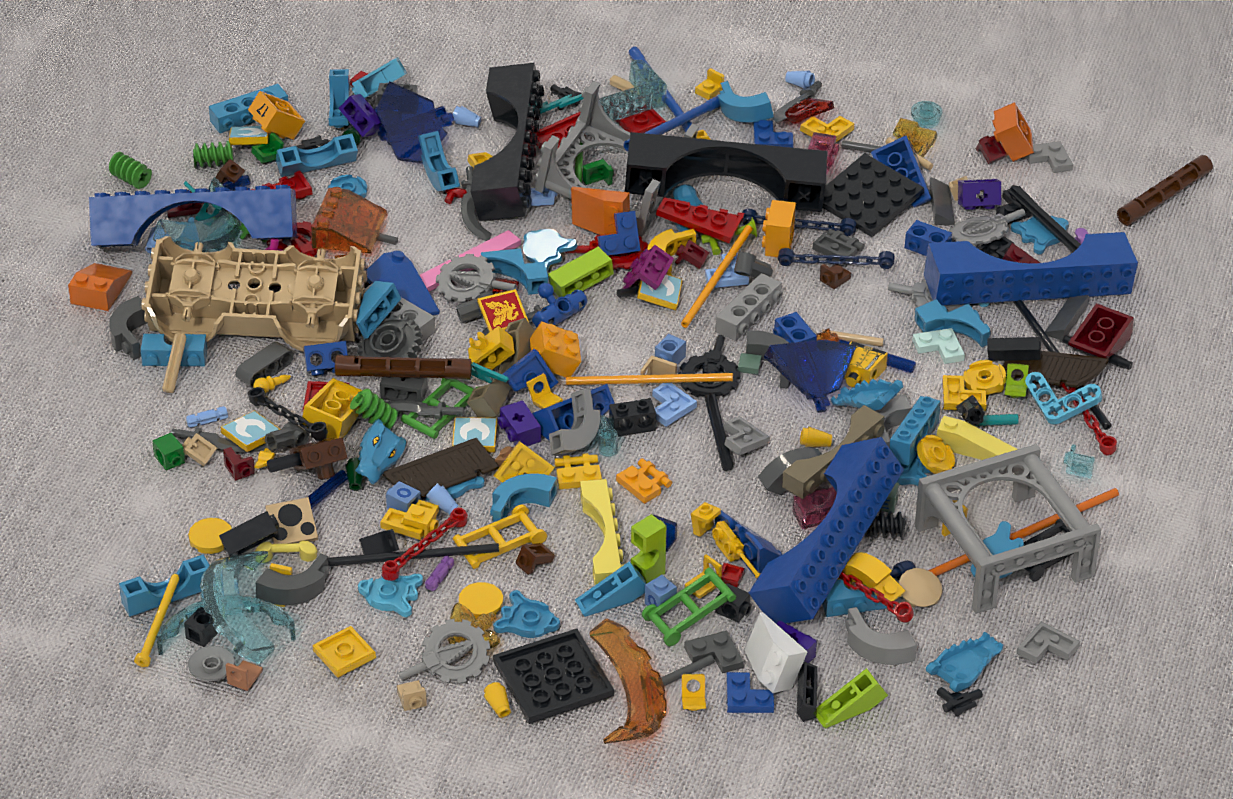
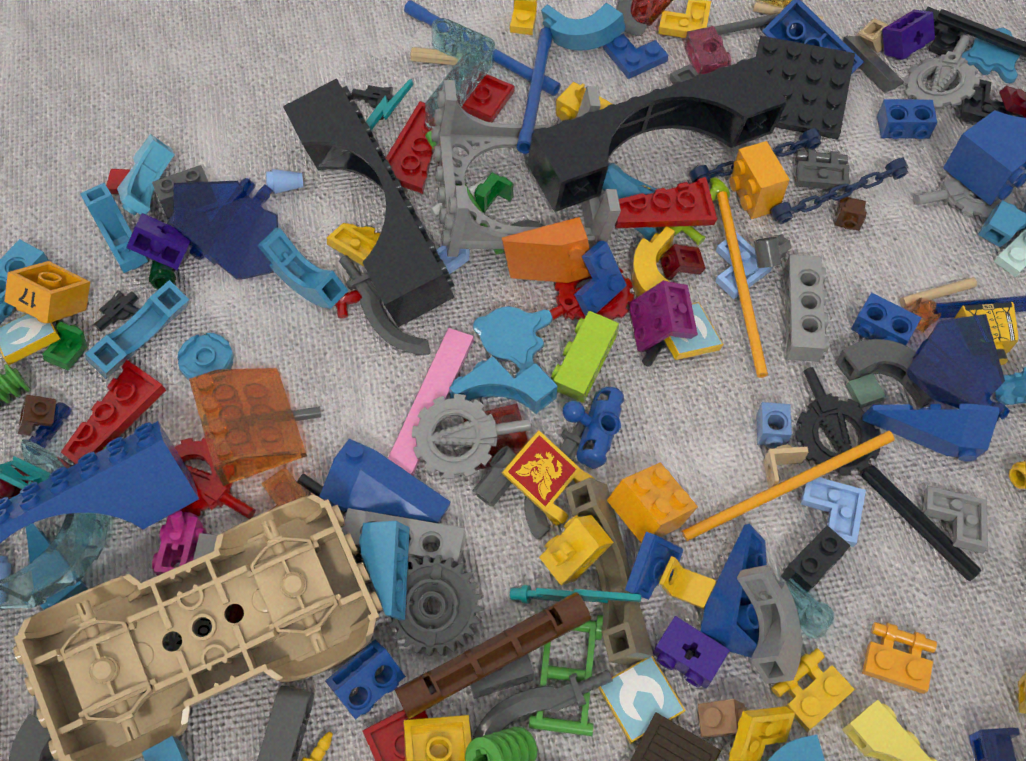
camera: 30 degrees left, 20 degrees up
(776, 391) = (950, 432): none -> blue wedge

